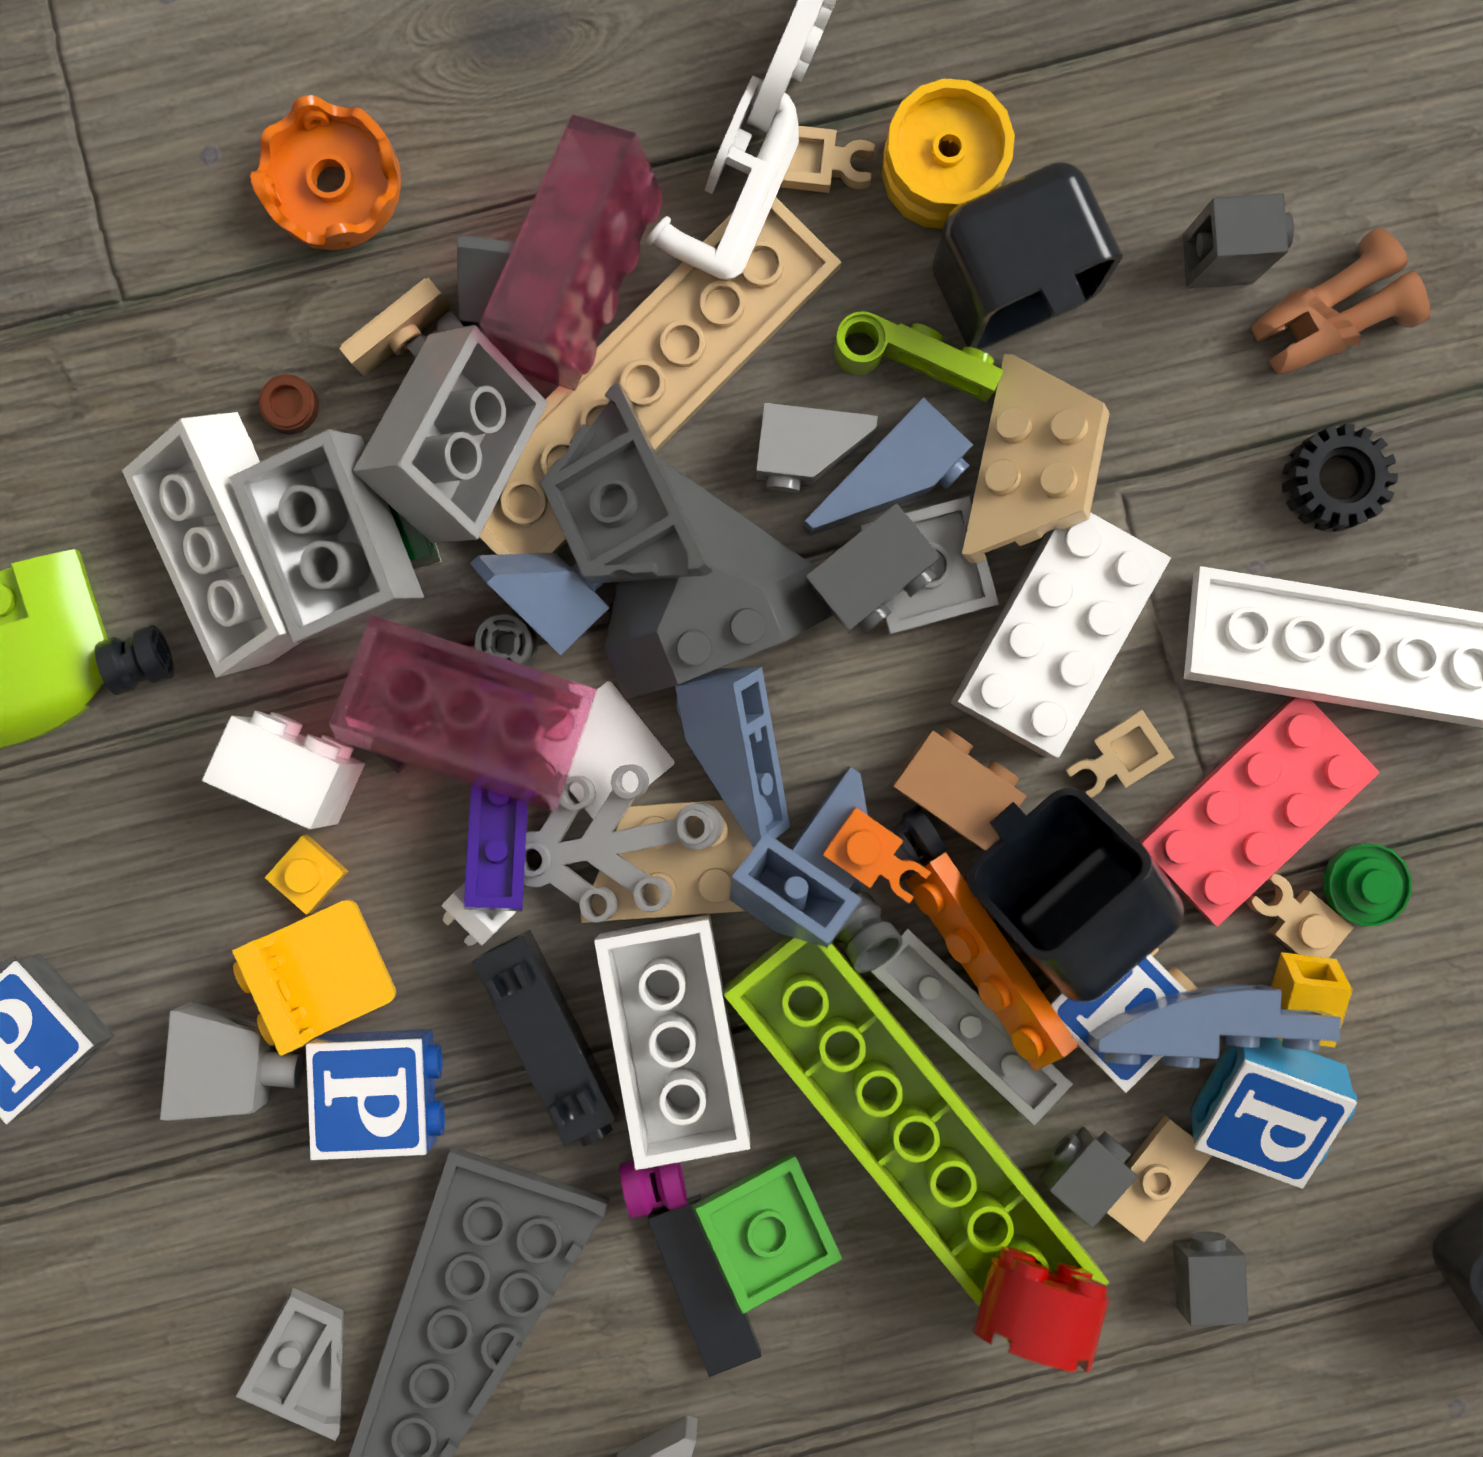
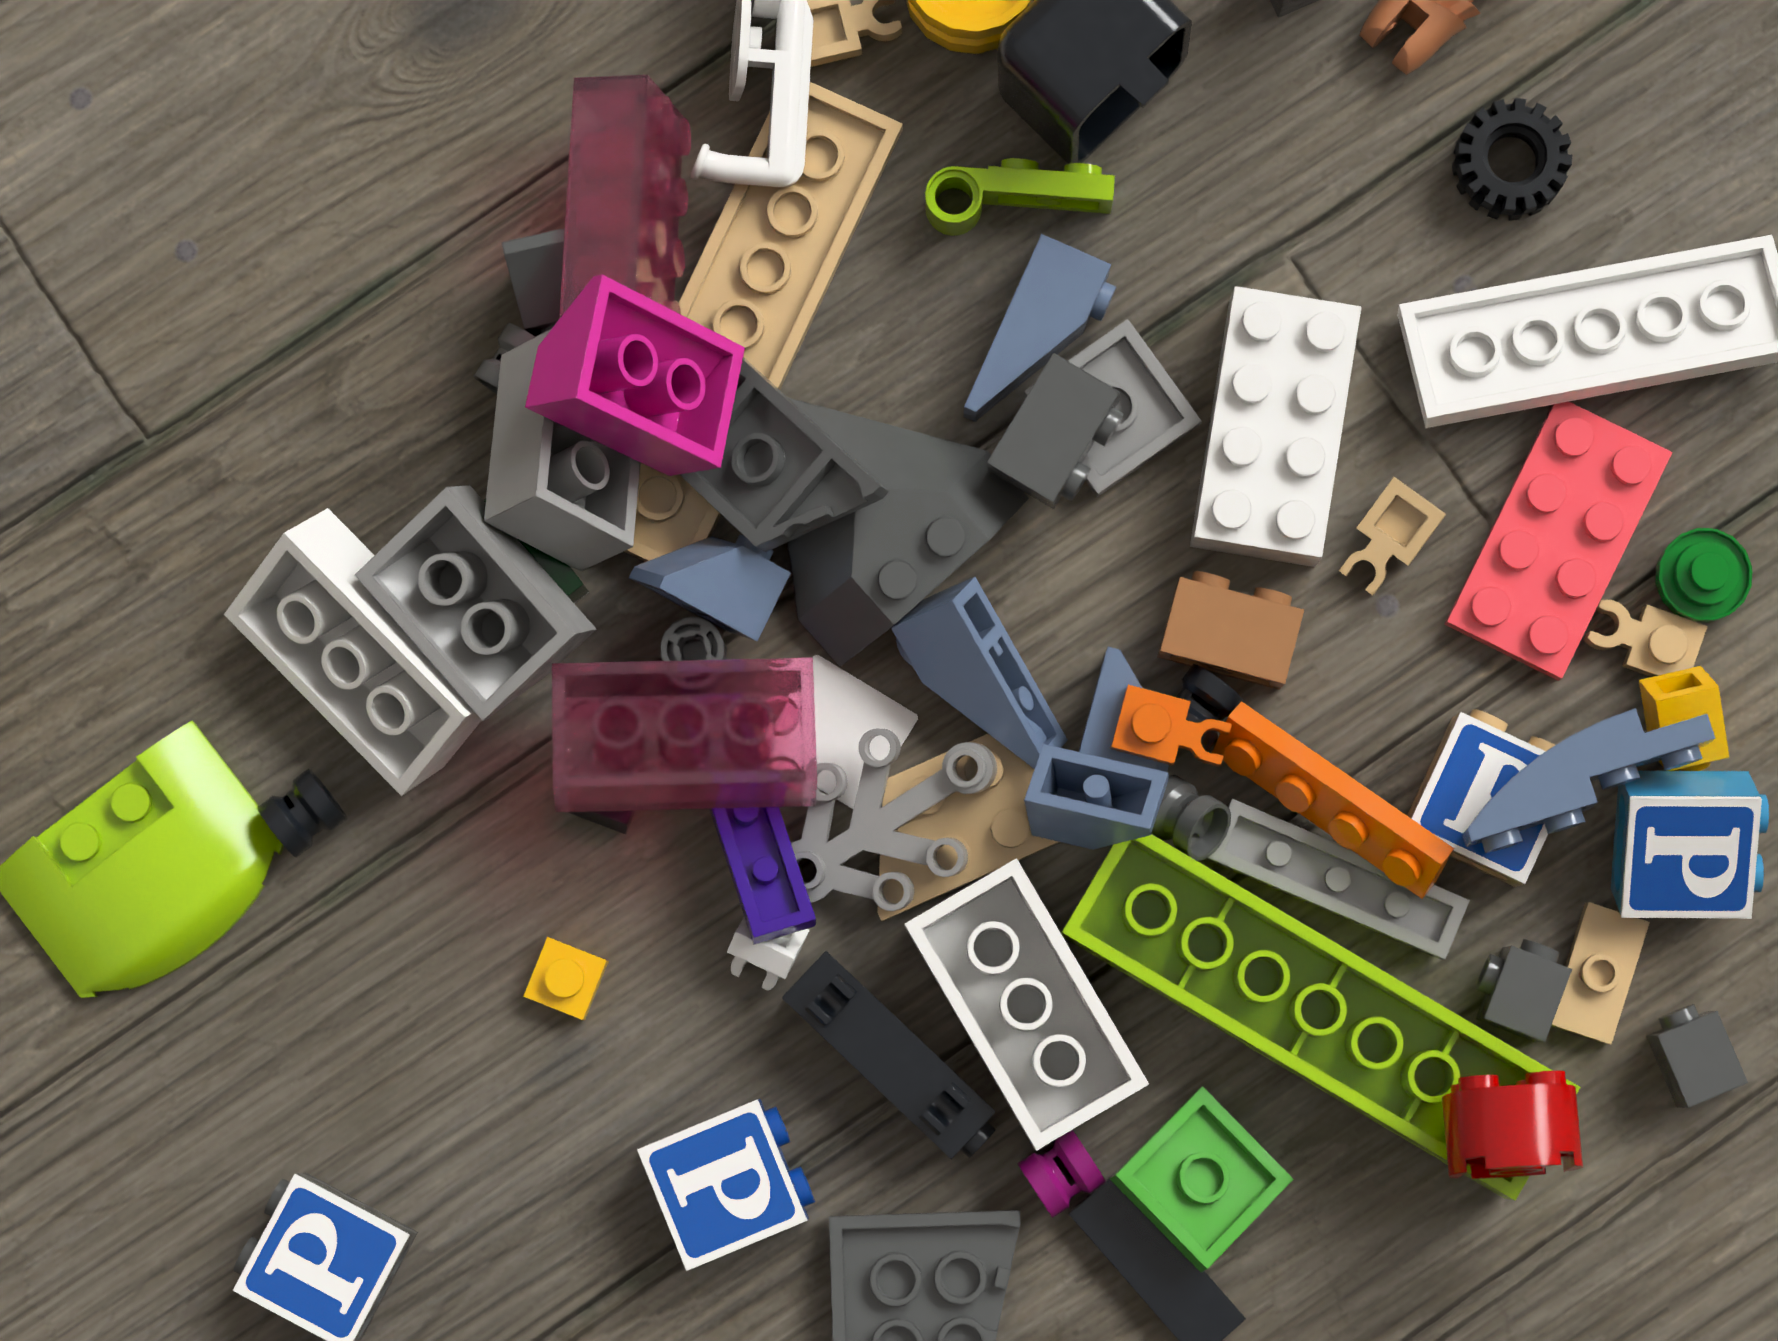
camera: 20 degrees left, 5 degrees down
(220, 1065) = (551, 1212): light grey torso -> none
(284, 771) = (511, 865): white brick -> none
(288, 403) = (366, 483): copper tile -> none
(304, 145) = (319, 184): orange plate -> none
(313, 976) = (617, 1078): yellow bracket -> none
(395, 327) = (455, 361): tan plate -> none
(528, 393) = (638, 379): none -> dark pink slope
(807, 443) = (935, 326): light grey slope -> none
(1035, 460) = (1182, 257): tan wing -> none
(1075, 892) = (1389, 689): black piece -> none

